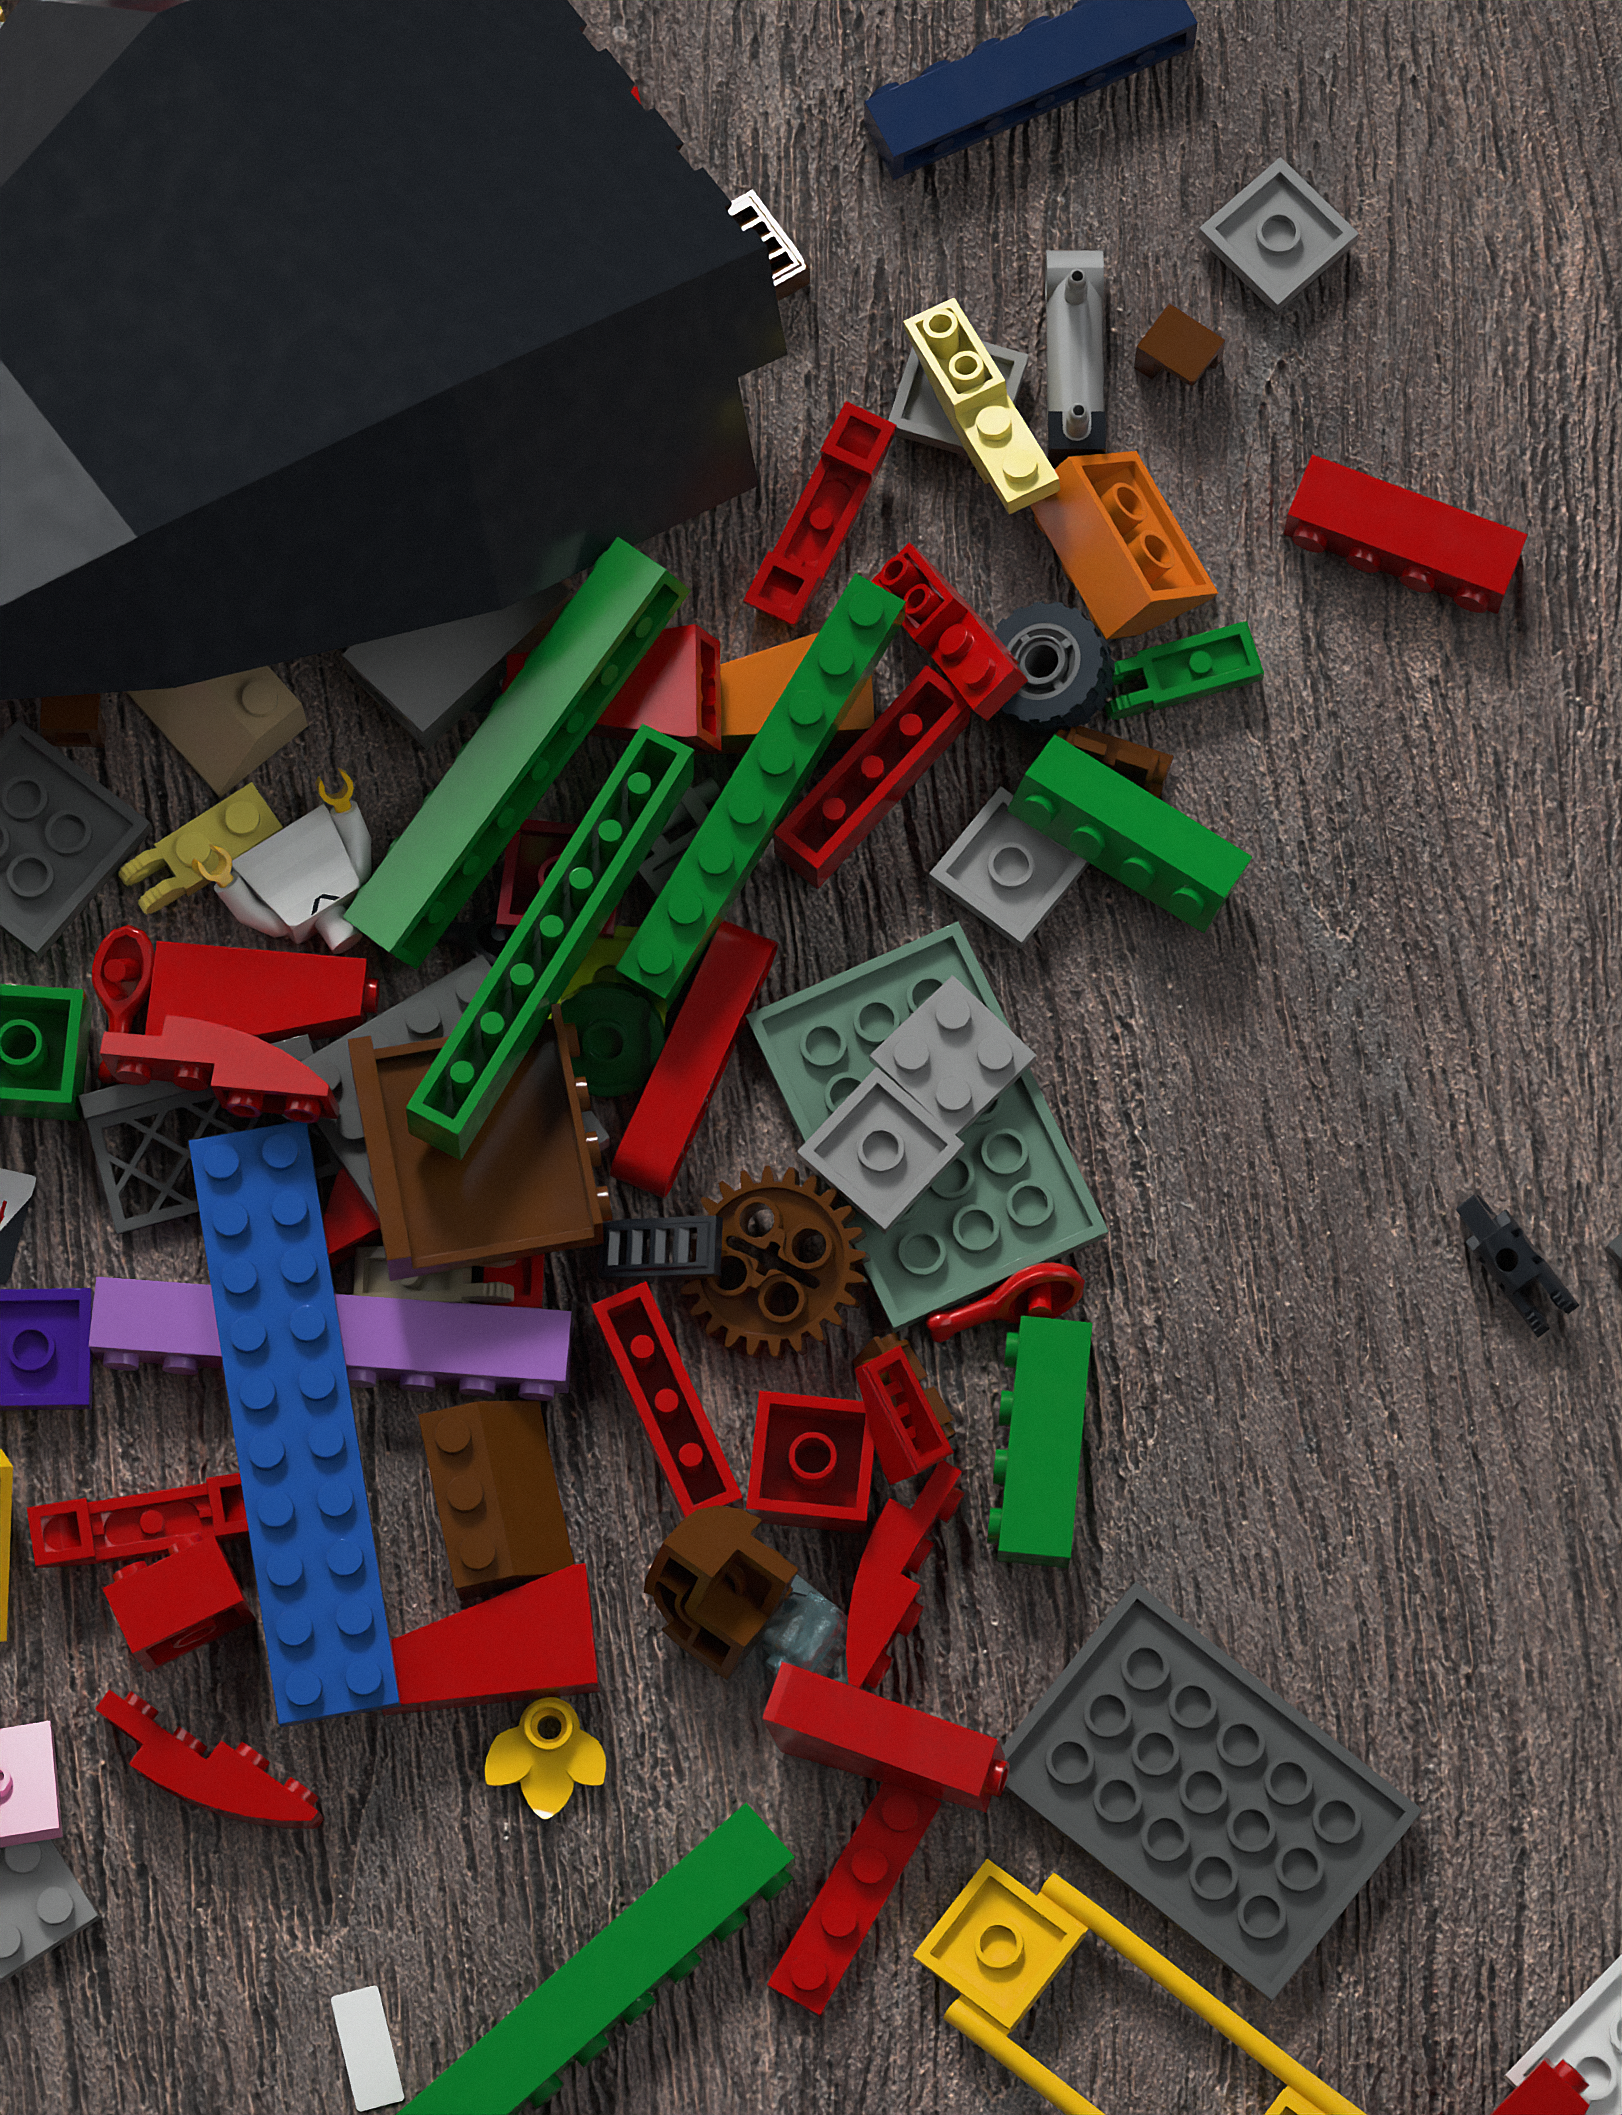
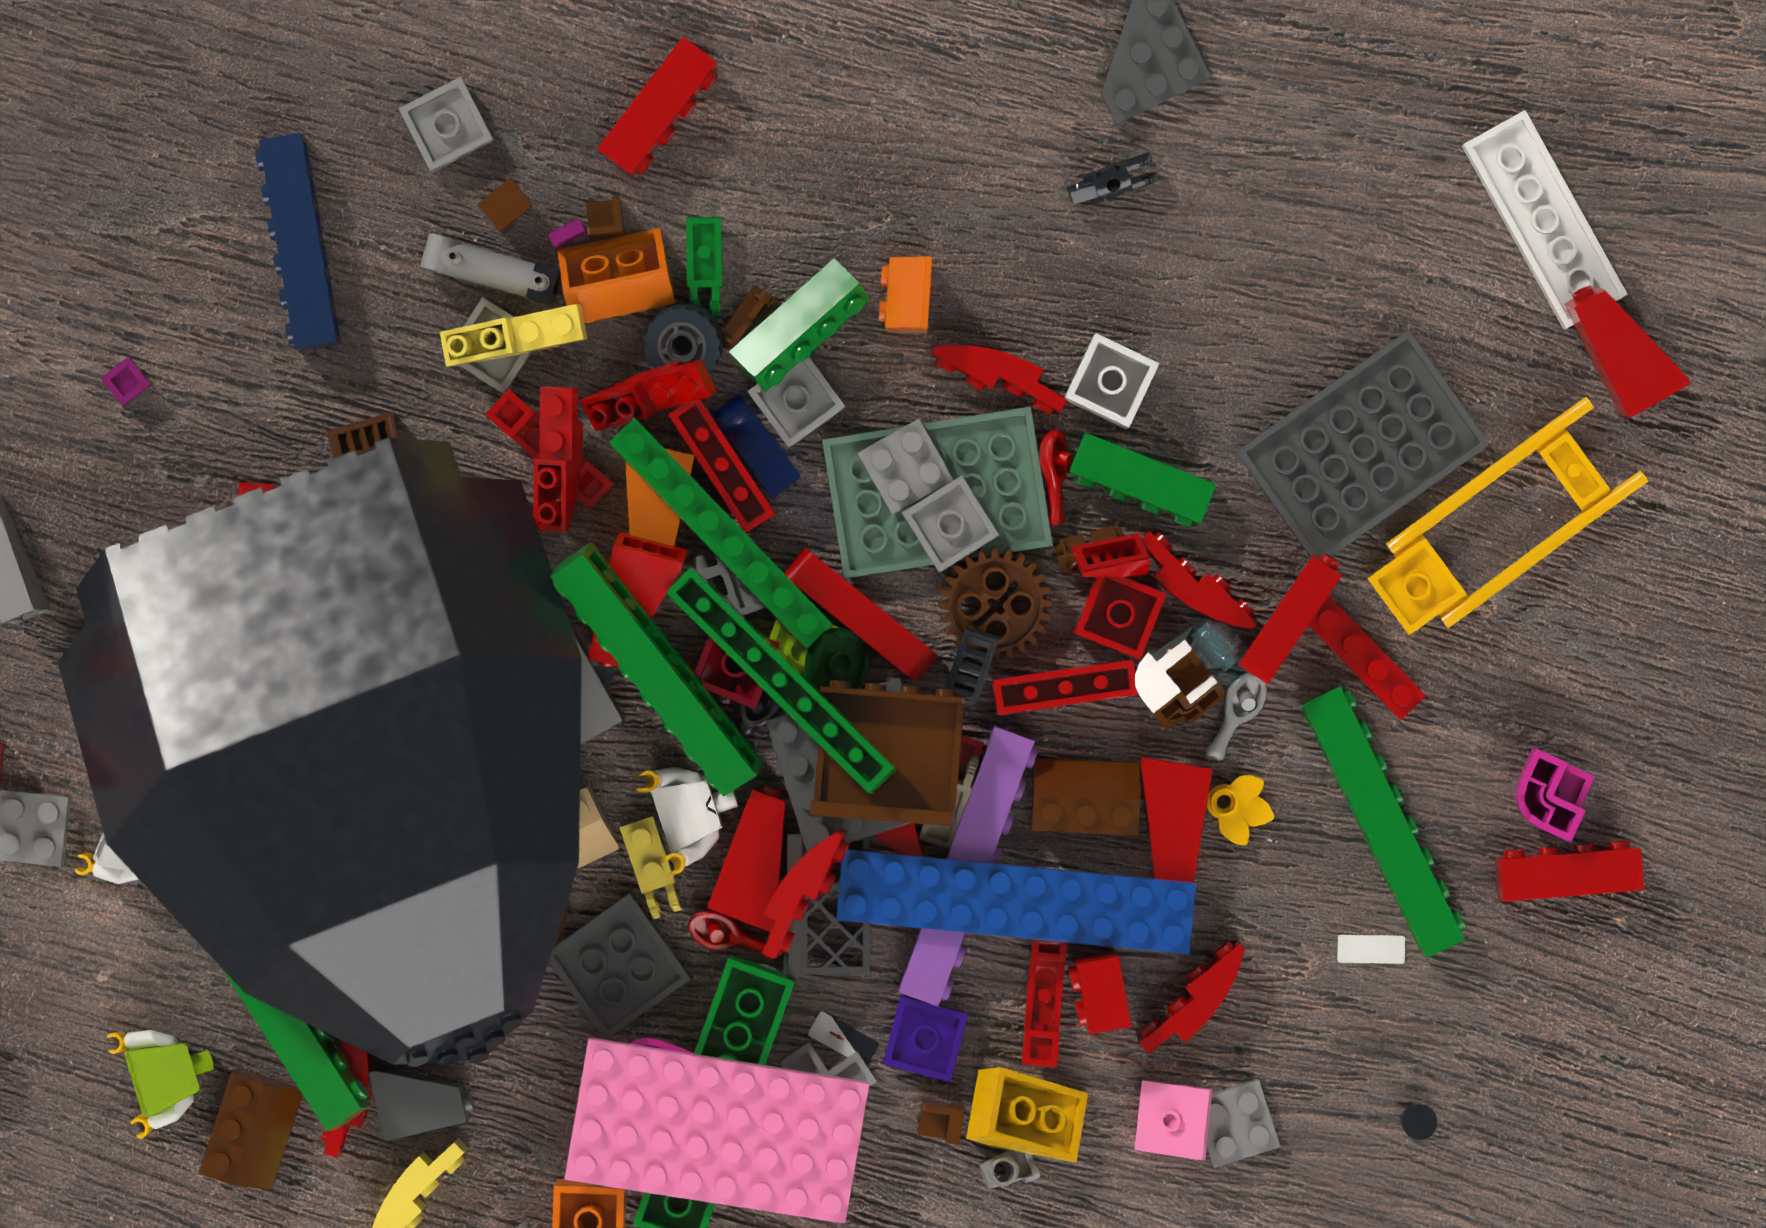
camera: 75 degrees left, 15 degrees up
(721, 1709) = (1241, 703): none -> light grey piece
(797, 532) = (560, 459): none -> red slope
(916, 827) = (756, 446): none -> clear blue slope
(1153, 1151) = (986, 365): none -> red slope
(1165, 454) = (567, 233): none -> magenta tile
(1188, 1344) = (1111, 381): none -> white brick
(1206, 506) = (605, 218): none -> reddish brown panel
(1230, 989) = (907, 294): none -> orange slope

